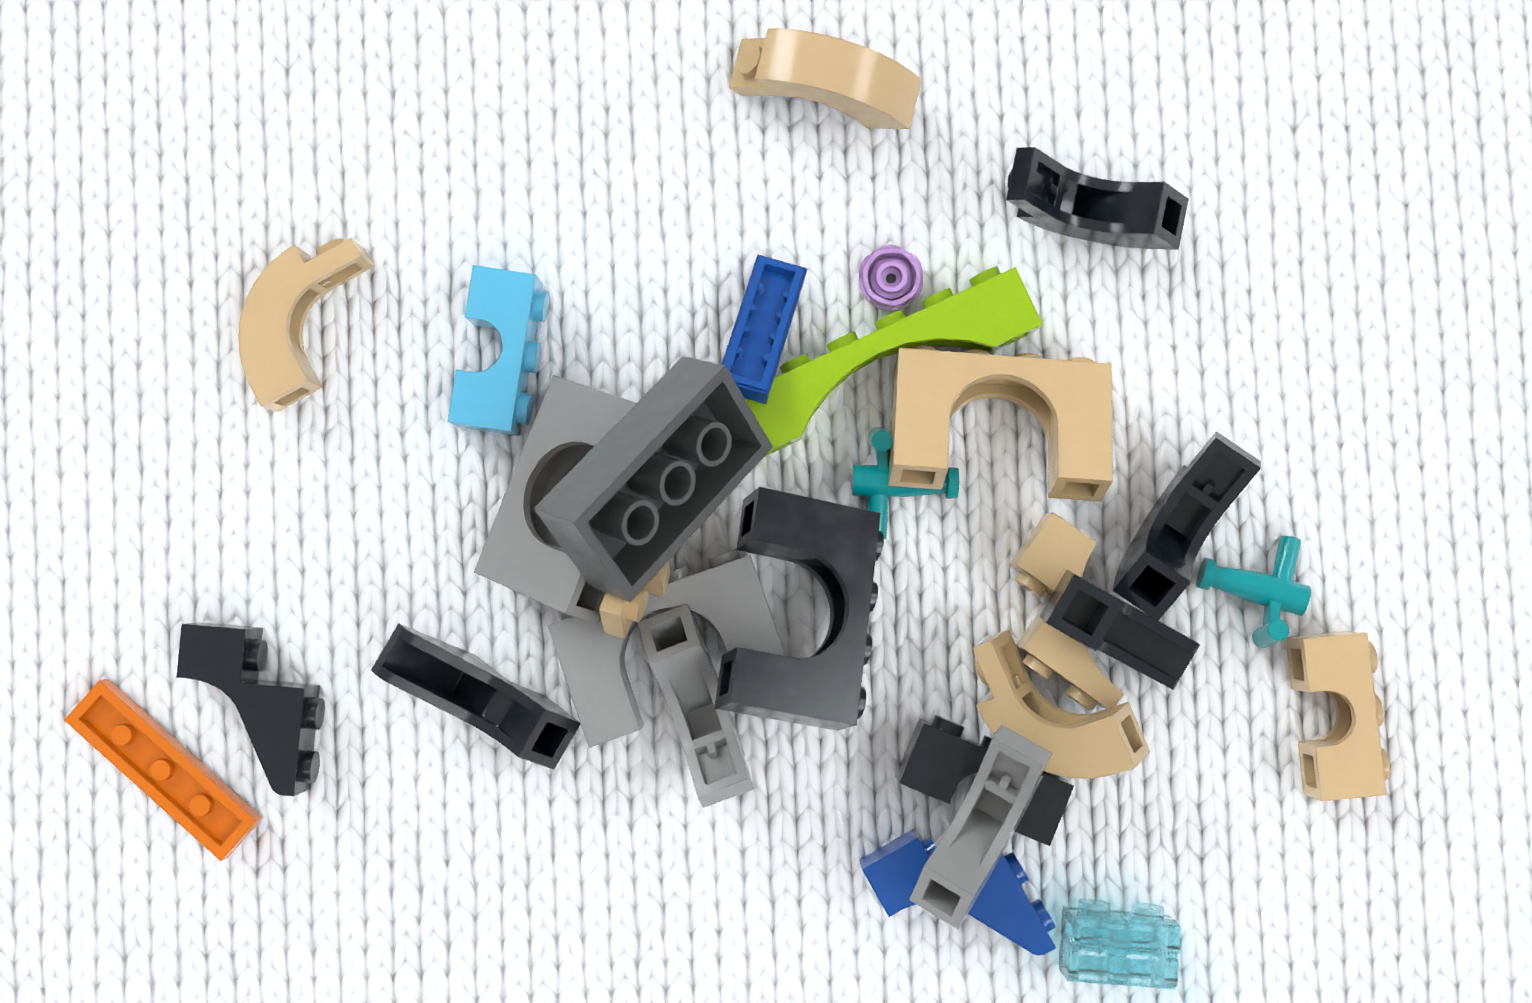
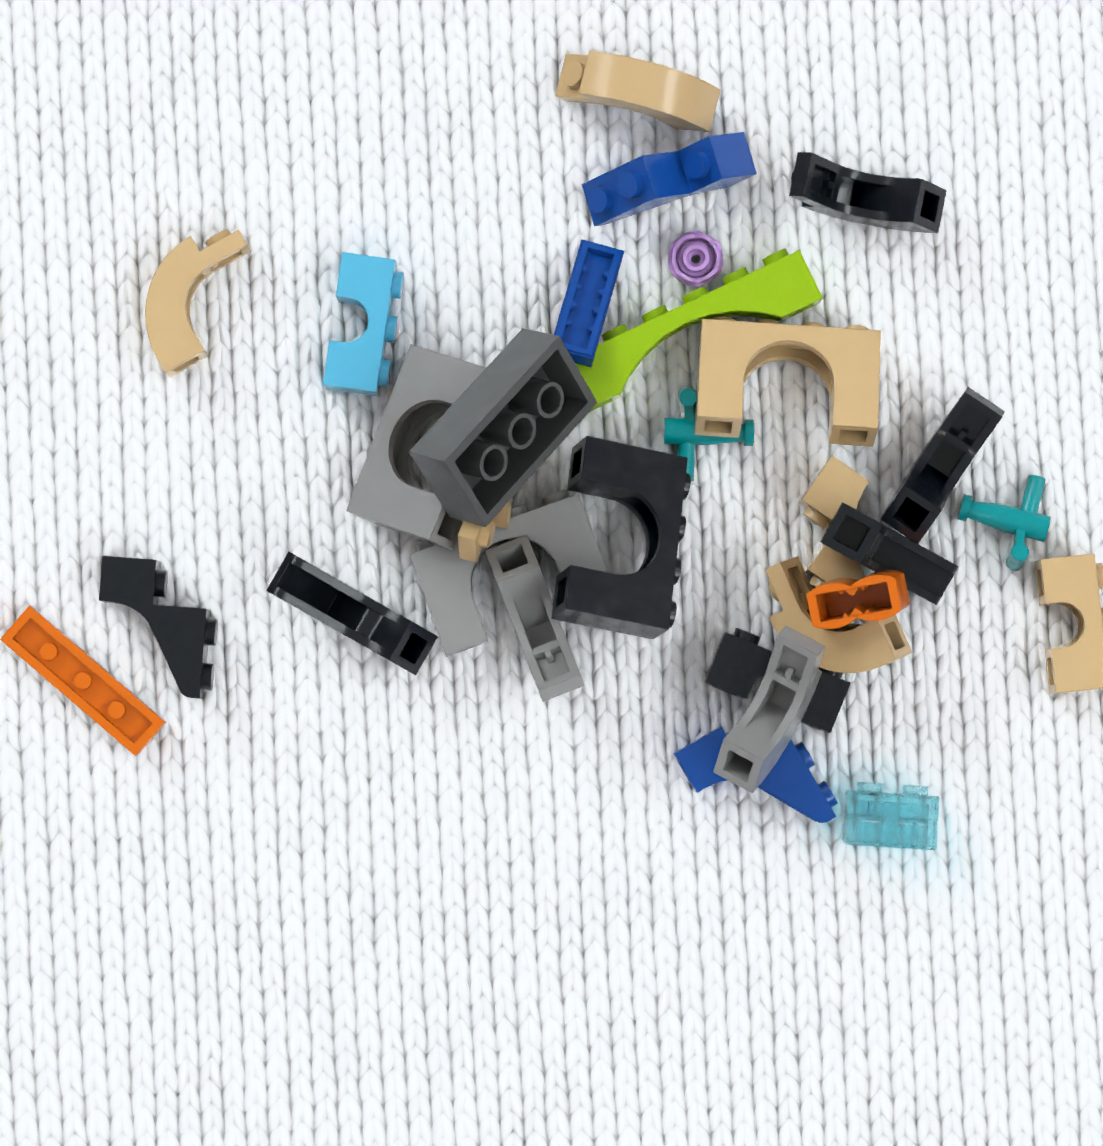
camera: 10 degrees left, 0 degrees up
(858, 180) = (669, 176): none -> blue arch
(1105, 690) = (868, 599): none -> orange brick

